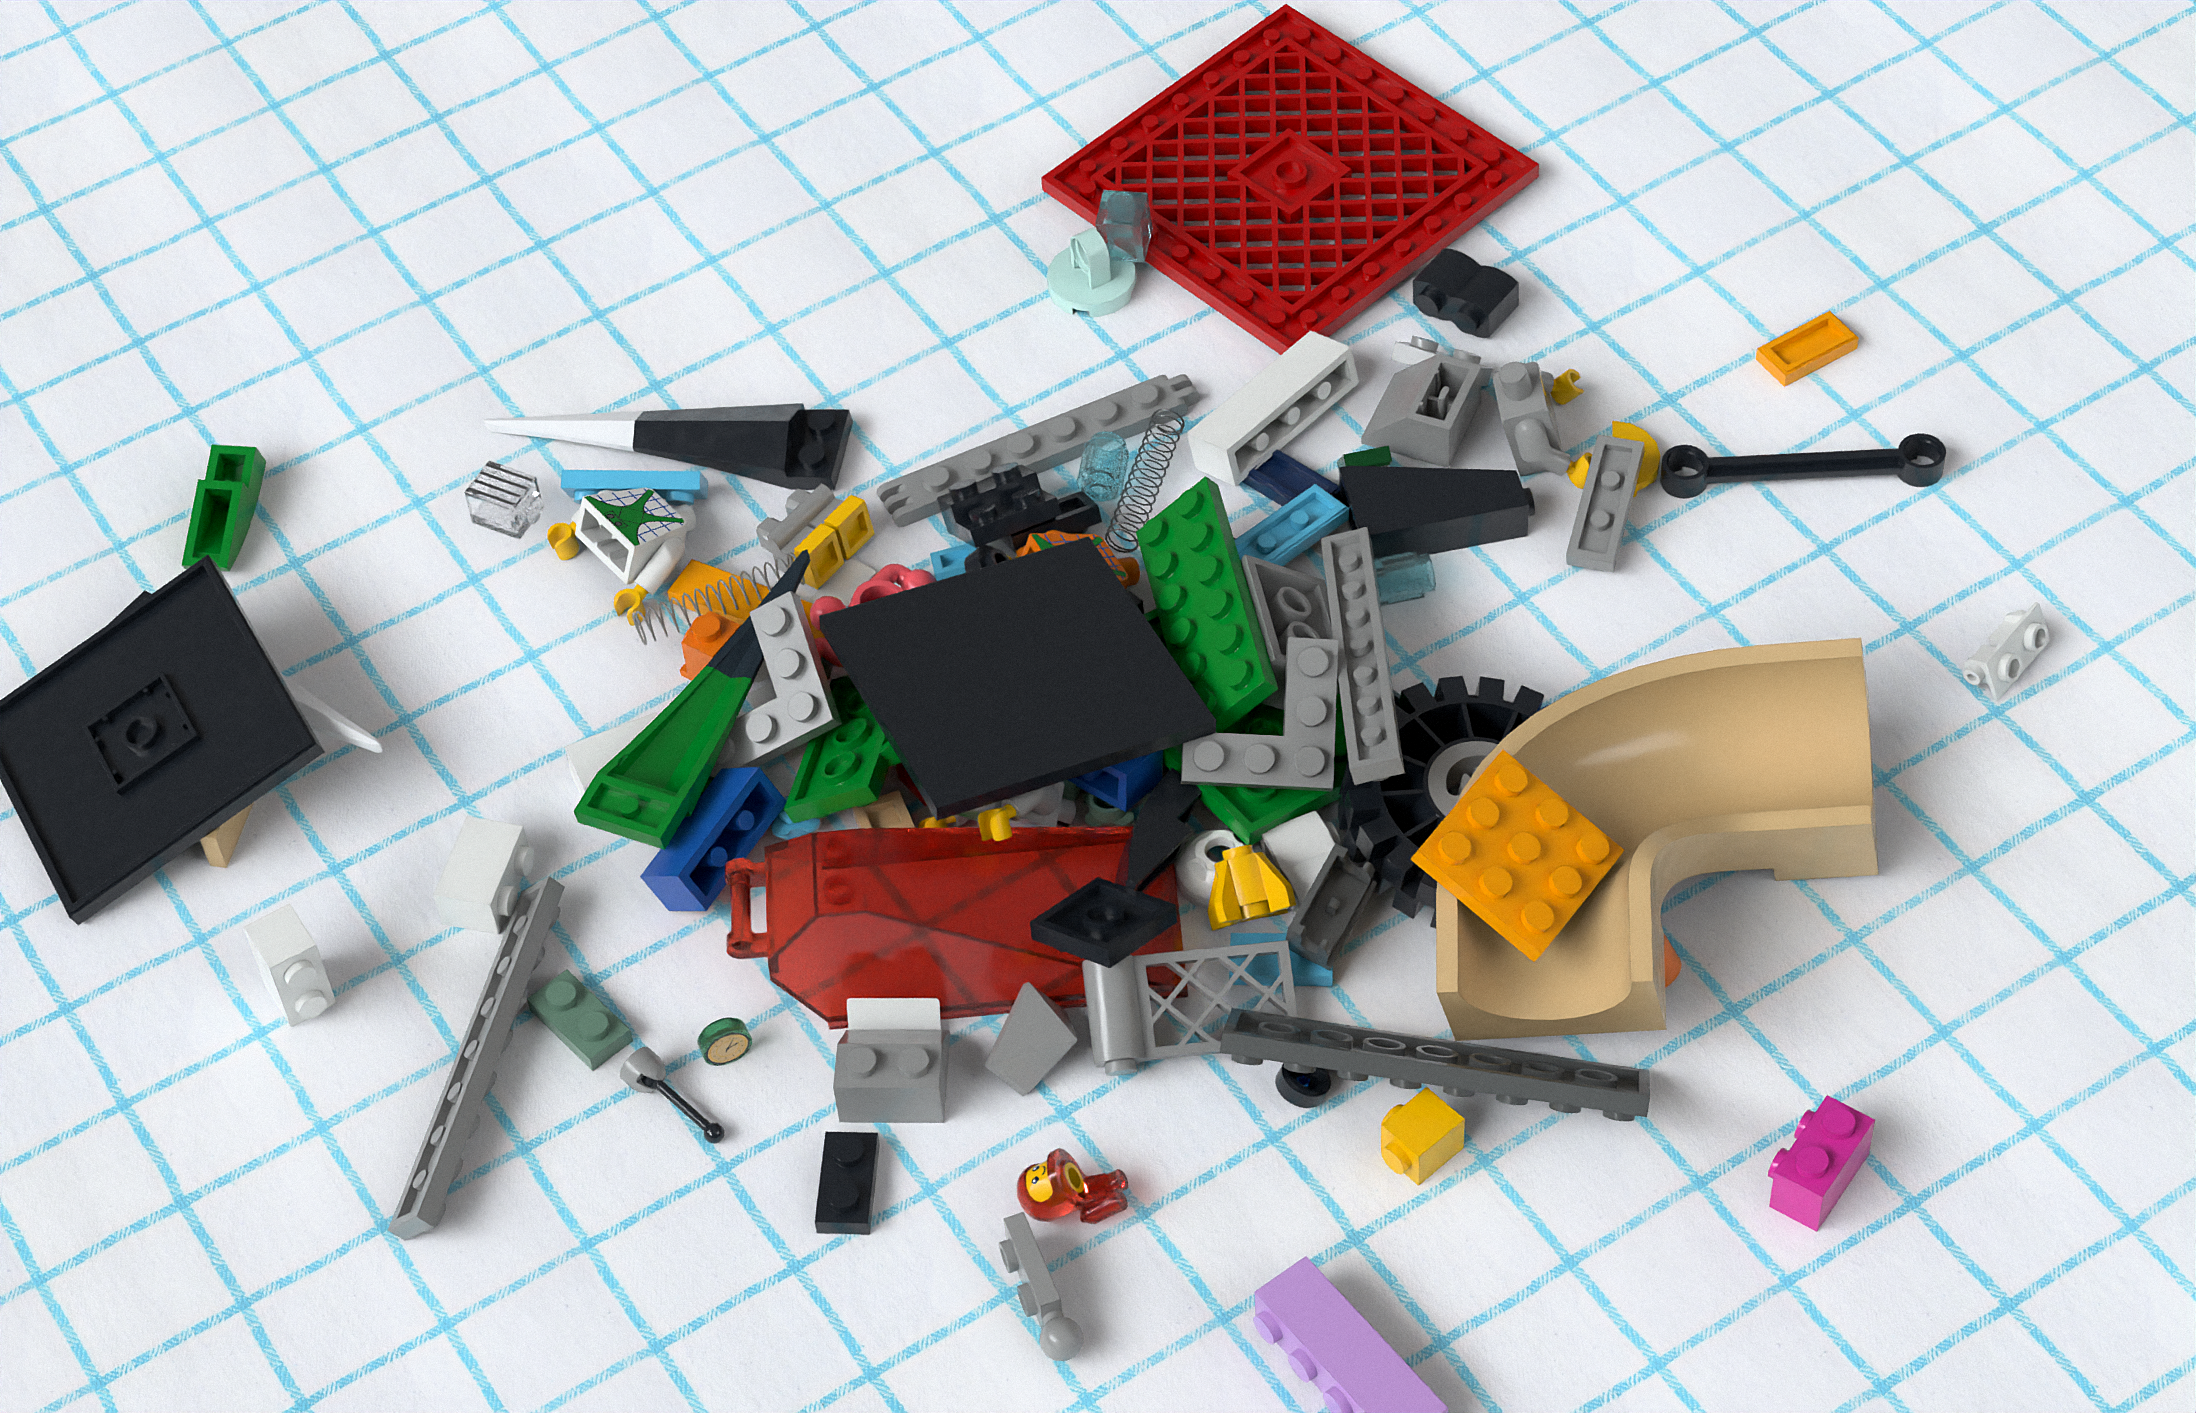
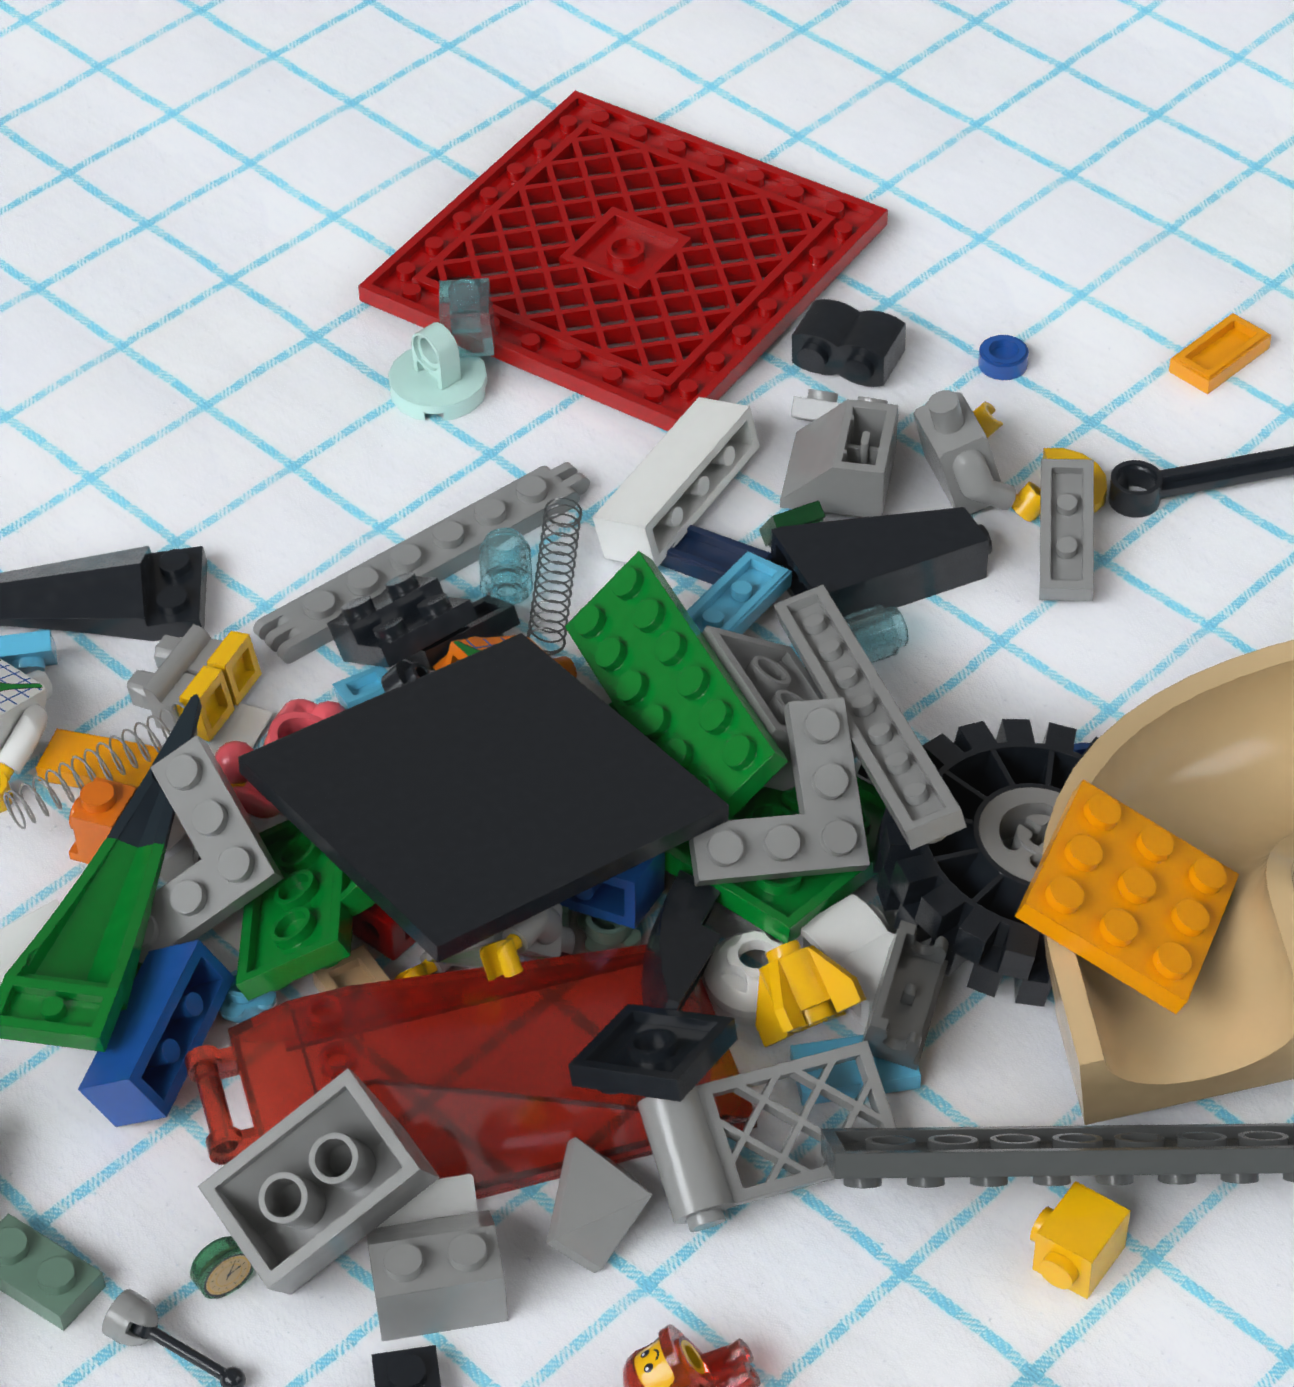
camera: 15 degrees left, 5 degrees down
(807, 987) = (317, 1183): none -> light grey slope
(1303, 1089) = (922, 1207): black tile -> none
(1605, 325) = (1003, 357): none -> blue tile

